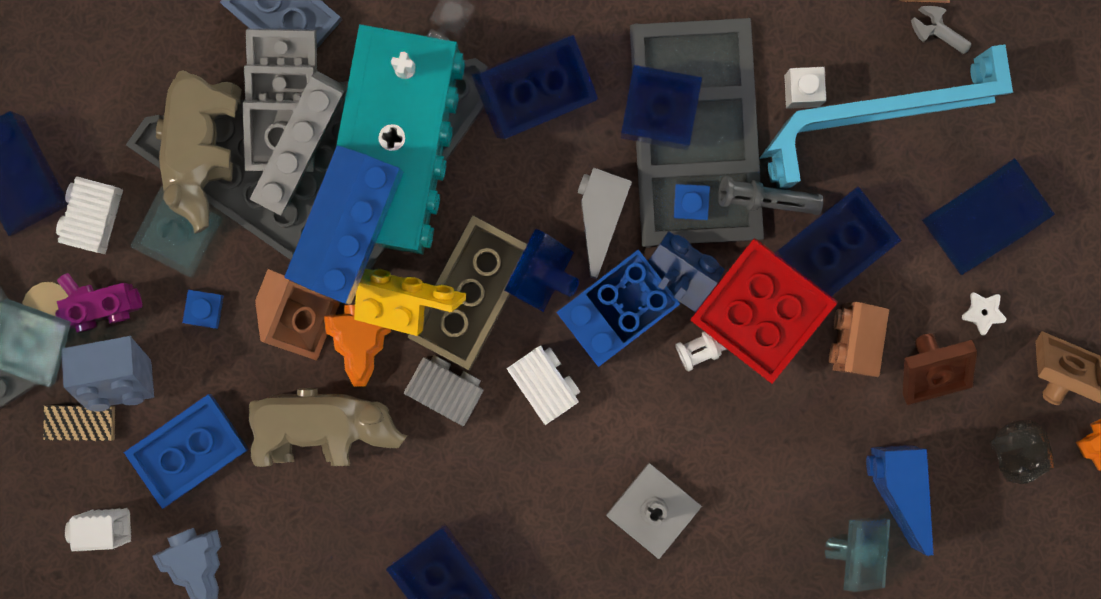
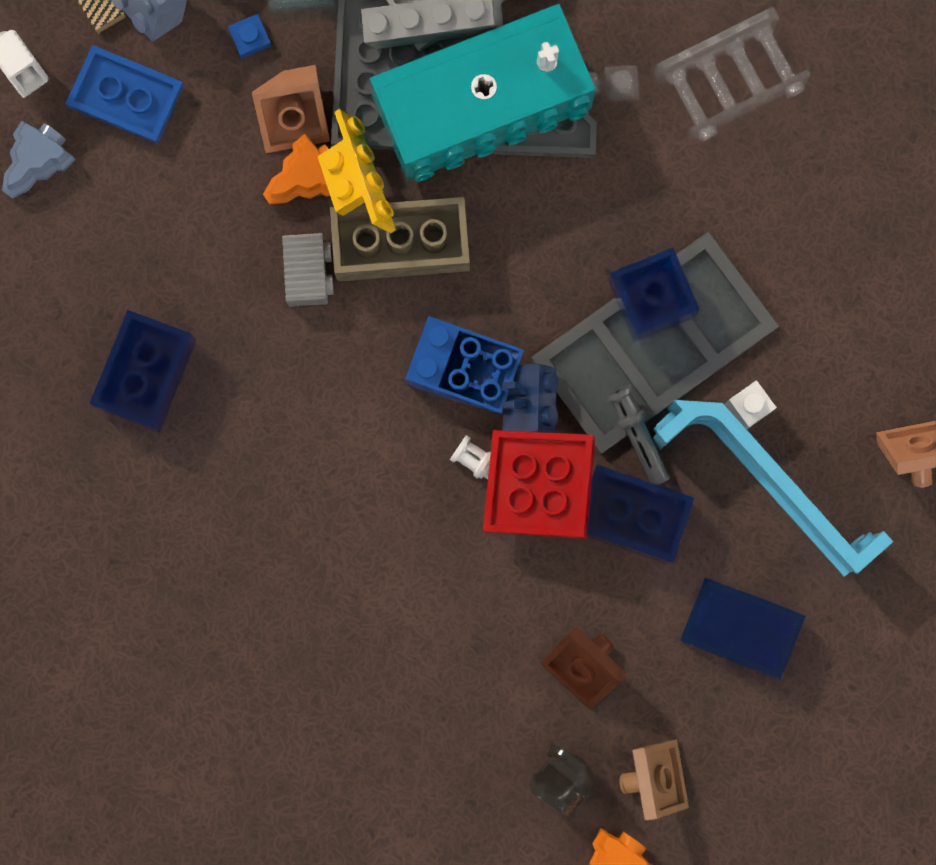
camera: 55 degrees right, 5 degrees down
(317, 420) = (215, 178): dark tan animal -> none
(344, 224) = (387, 92): blue slope -> none
(535, 86) = (603, 182): clear blue brick -> none
(542, 272) = (454, 283): clear blue tile -> none
(543, 384) = (363, 346): white brick -> none
(601, 208) = (539, 303): light grey slope -> none
(653, 510) = (315, 506): light grey tile -> none
(691, 202) = (593, 373): blue plate -> none
(859, 339) = (569, 585): nougat slope -> none
(864, 553) = (390, 702): clear light blue tile -> none
(904, 485) = (470, 694): blue slope -> none
(939, 29) = (874, 490): light grey bar -> none
(975, 314) = (653, 672): white plate -> none

